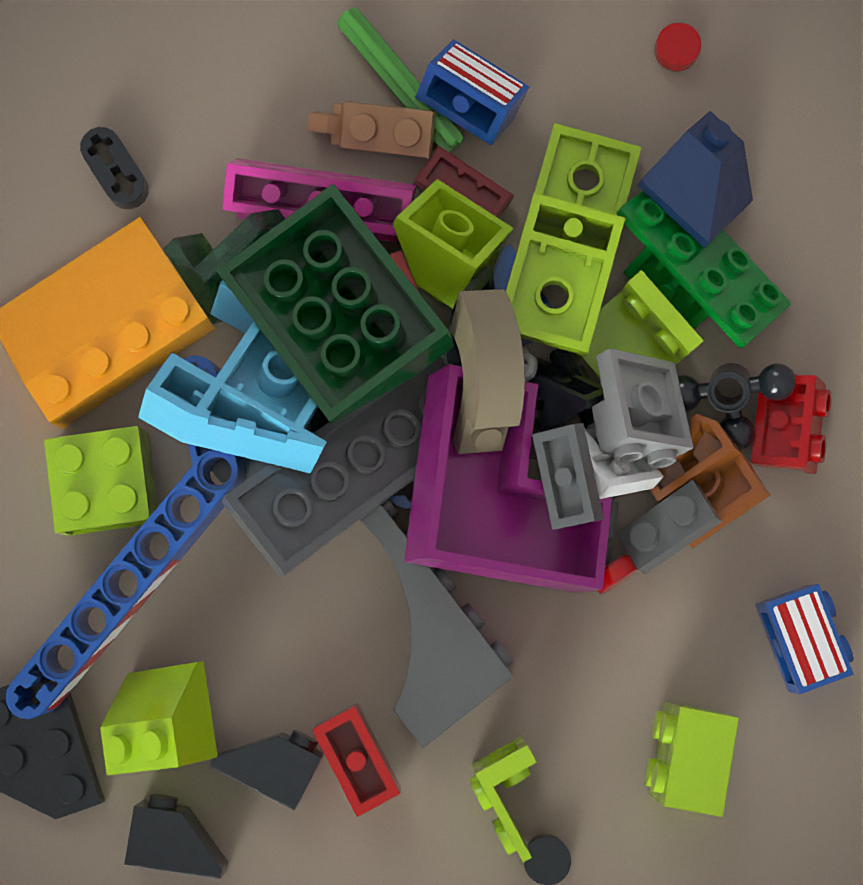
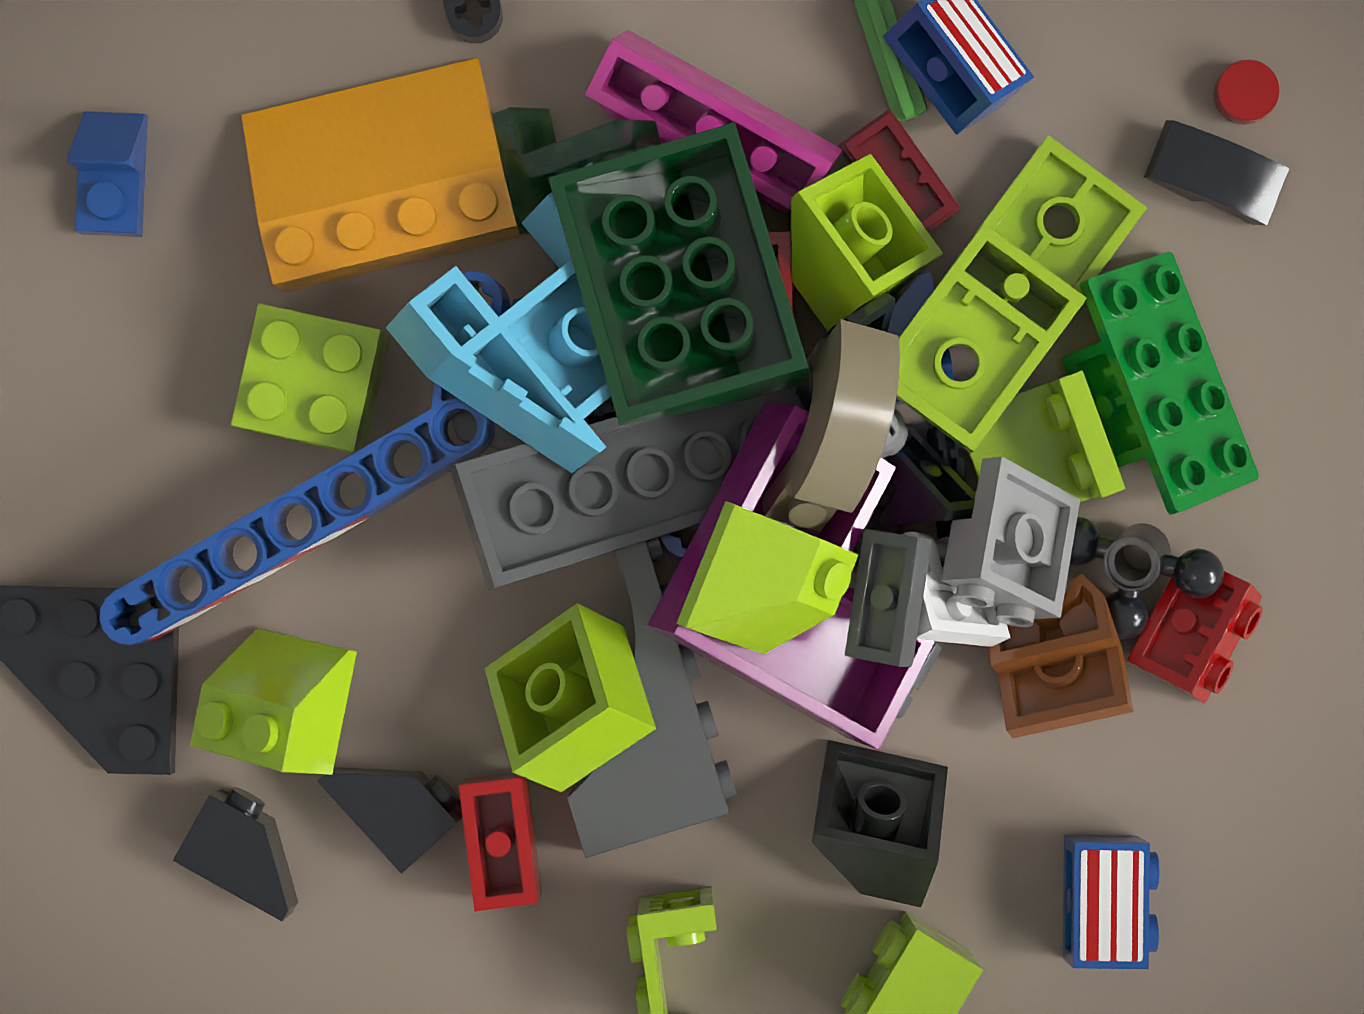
camera: 25 degrees right, 5 degrees up
(368, 636) = (569, 698): none -> lime brick
(377, 128) = (820, 57): medium nougat hinge -> none
(476, 496) = (764, 582): none -> lime slope
(617, 572) = (908, 733): red tile -> none
(623, 642) = (881, 820): none -> pearl dark grey slope
(669, 527) = (992, 702): dark grey plate -> none
(675, 104) = (1216, 172): none -> black slope
(702, 179) = (1206, 281): dark blue slope -> none

